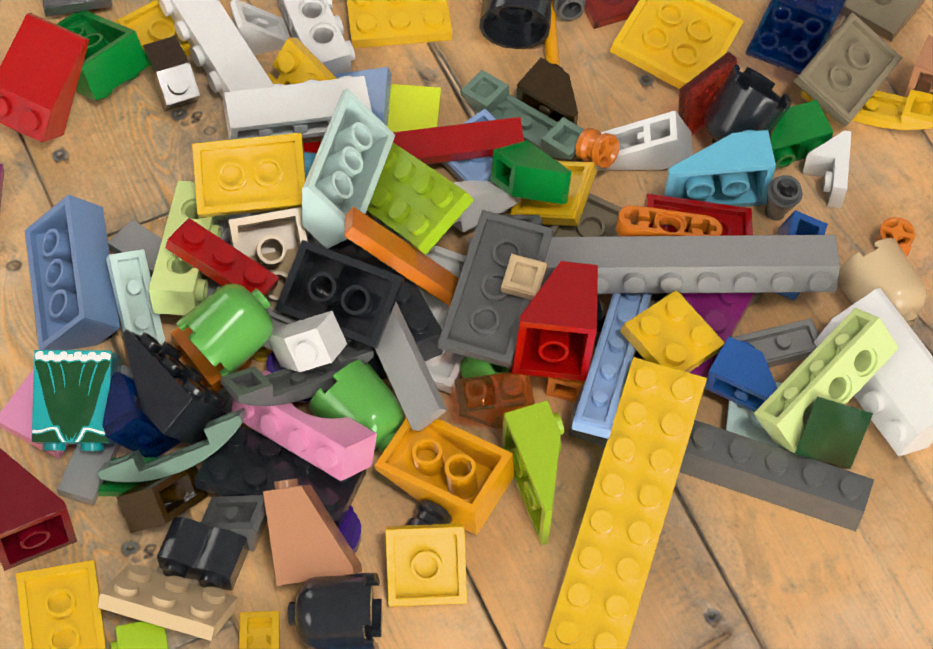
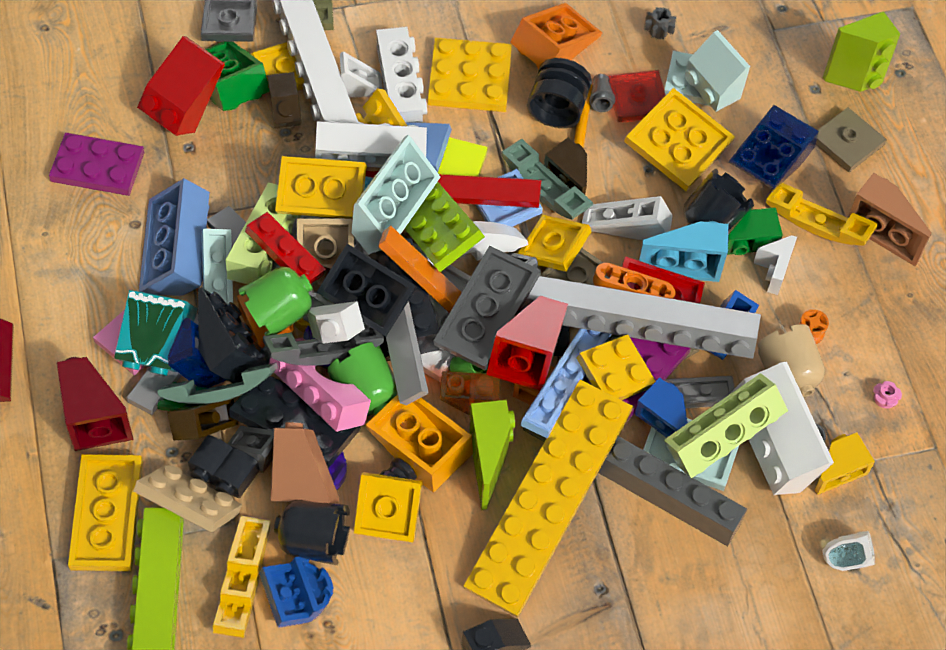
camera: 10 degrees right, 0 degrees up
(523, 276) = (509, 302): tan tile -> none
(530, 173) = (537, 224): green slope -> none
(597, 147) = (595, 214): orange wheel -> none
(700, 91) = (684, 184): clear red plate -> none
(782, 196) = (730, 277): dark grey cone -> none
(833, 432) = (724, 466): dark green sticker -> none
(848, 69) = (806, 188): dark tan tile -> none

